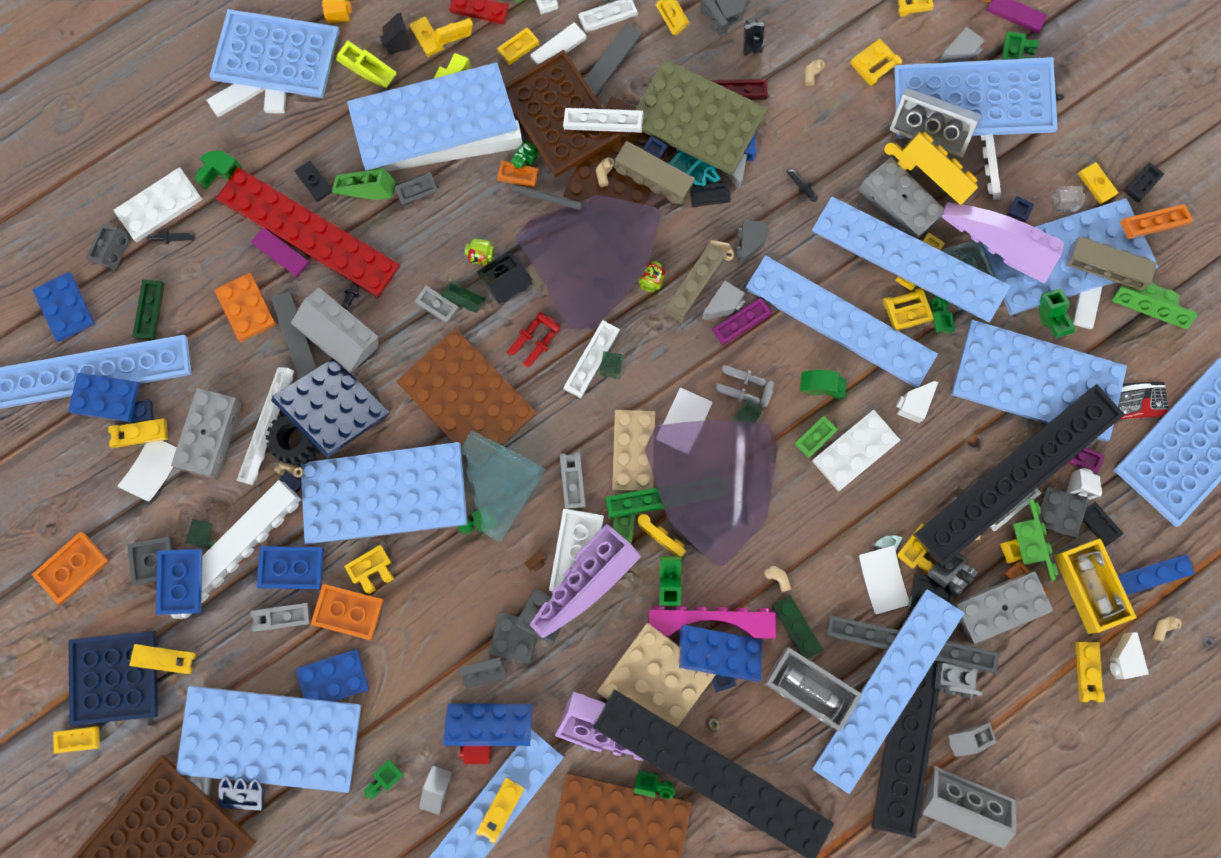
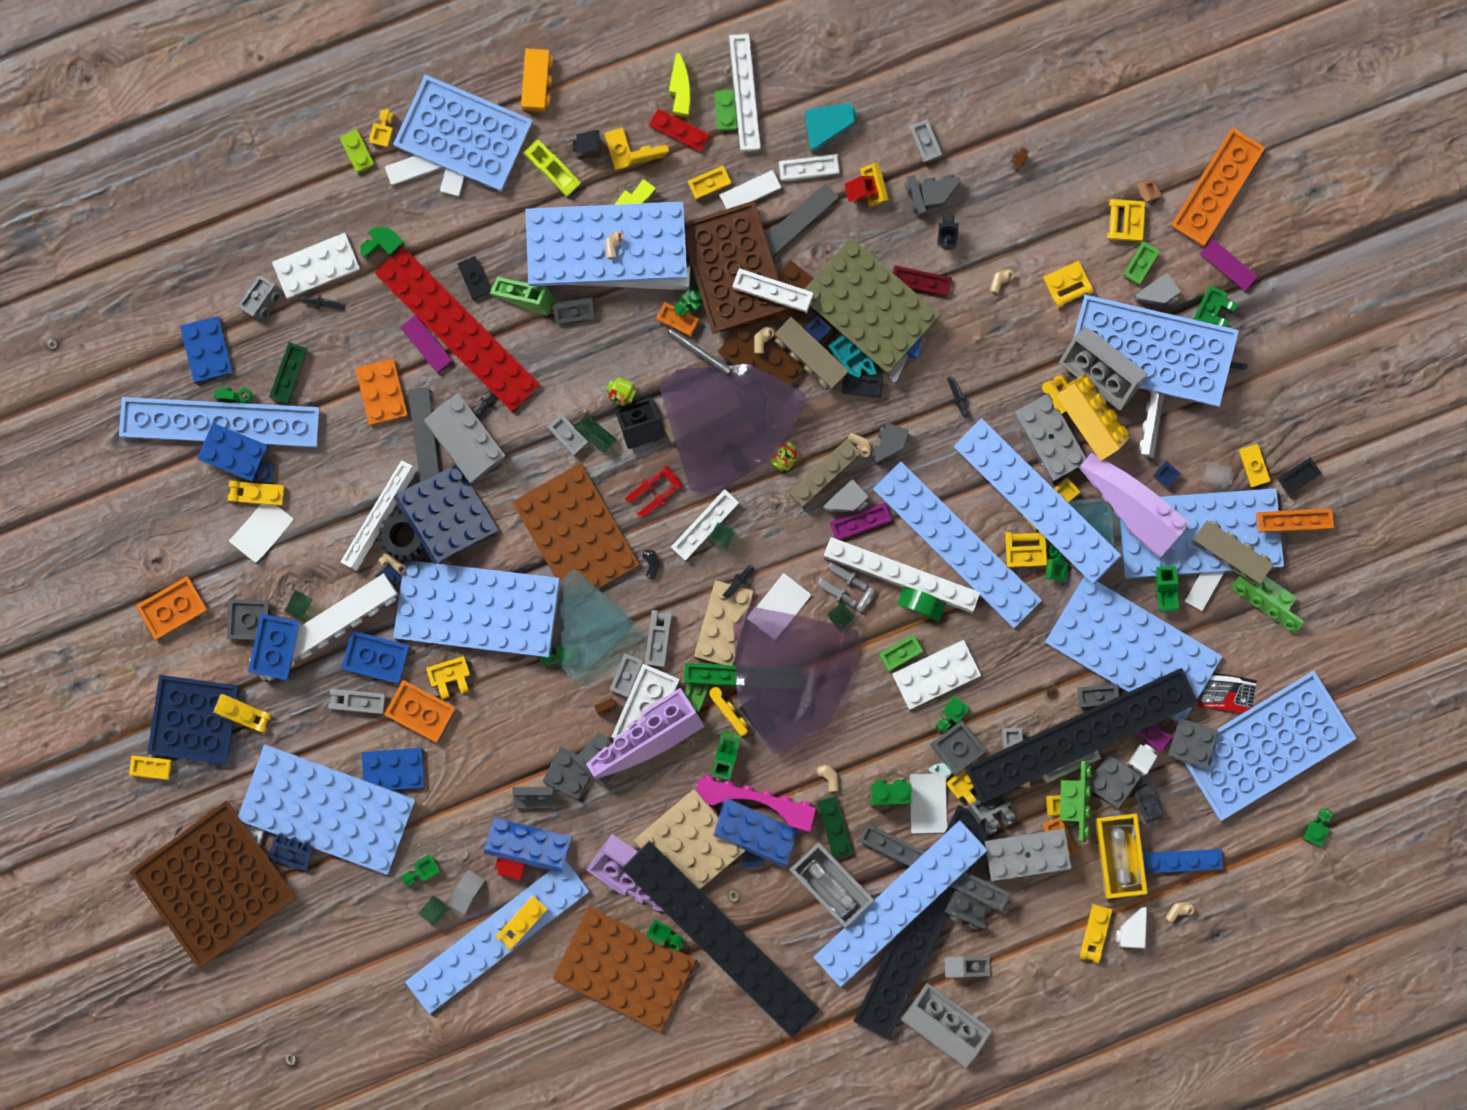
camera: 15 degrees right, 5 degrees up
(90, 343) = (227, 394): none -> green plate
(177, 92) = (356, 151): none -> lime plate
(198, 70) = (382, 134): none -> yellow plate
(207, 434) = (322, 510): light grey piece -> none
(405, 819) = (433, 910): none -> clear green panel
(437, 109) = (611, 243): none -> tan arm
(549, 524) = (626, 675): none -> light grey plate
(551, 408) = (653, 561): none -> black arm
(639, 404) = (740, 579): none -> black piece
(661, 18) = (861, 188): none -> red brick
(795, 360) = (900, 574): none -> white brick
(852, 577) = (890, 794): none -> green brick
(884, 481) = (955, 711): none -> green plate
(899, 517) = (958, 748): none -> dark grey plate
(916, 402) = (1006, 642): white slope -> none
(937, 27) = (1141, 263): none -> bright green plate
(948, 493) = (1011, 736): none -> light grey plate
(1018, 432) = (1096, 695): none -> dark grey plate
(1129, 455) = (1193, 743): none -> dark grey plate

